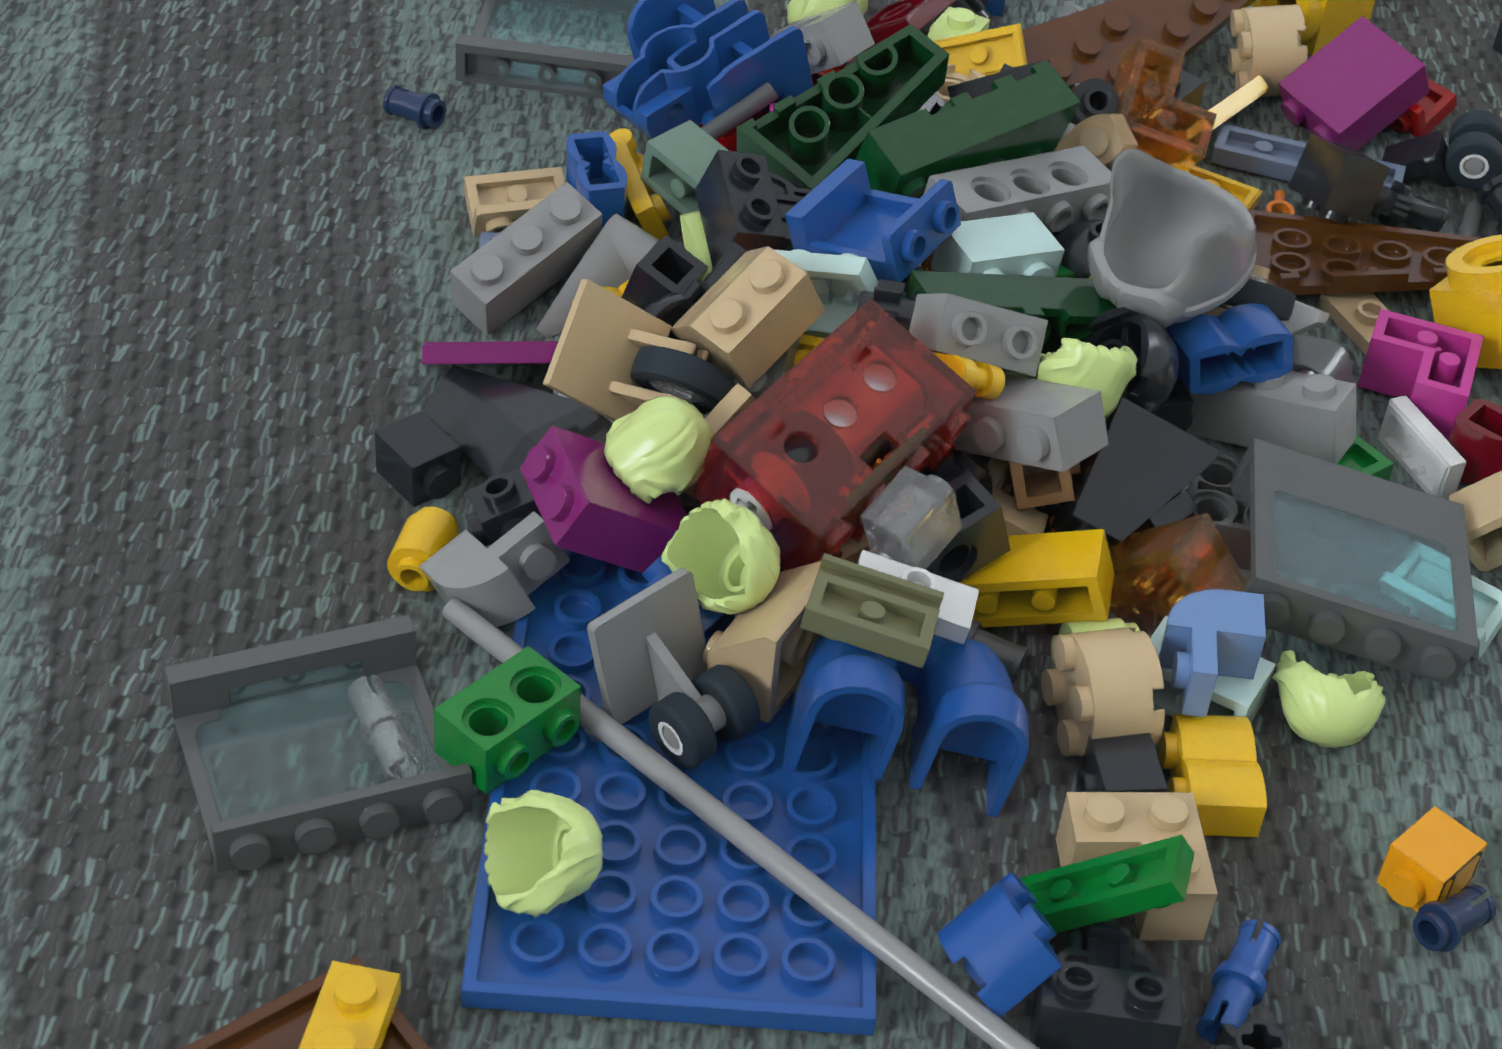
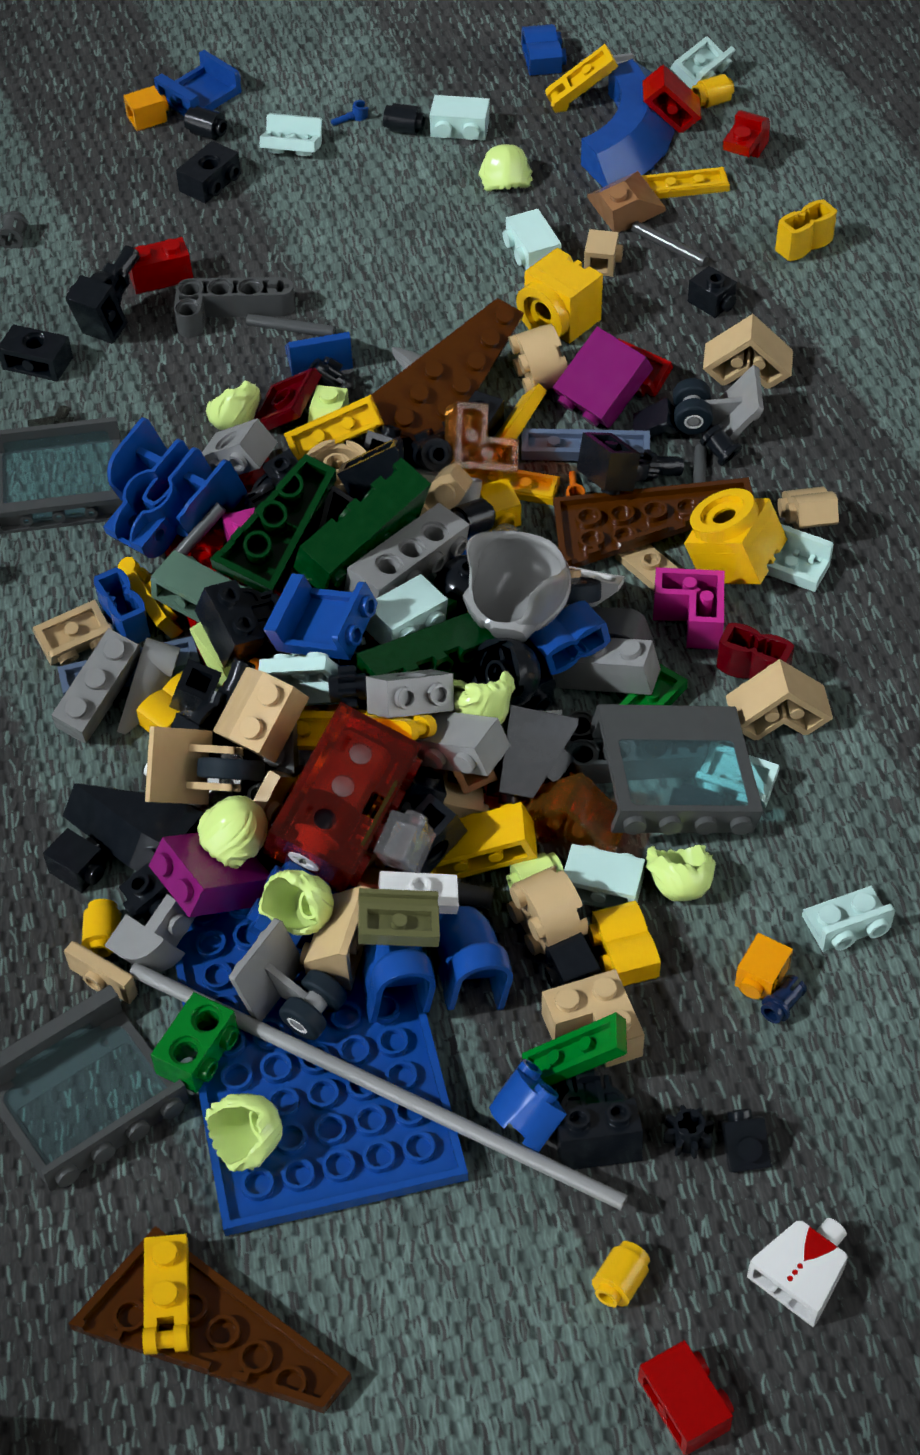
camera: 10 degrees left, 10 degrees up
(384, 729) = (121, 1067): clear pin -> none
(397, 595) = (100, 972): none -> tan plate
(488, 352) = (99, 765): magenta tile -> none
(1210, 637) = (604, 855): medium blue brick -> none
(1240, 979) = (669, 1080): blue pin -> none
(1421, 448) = (702, 662): white plate -> none

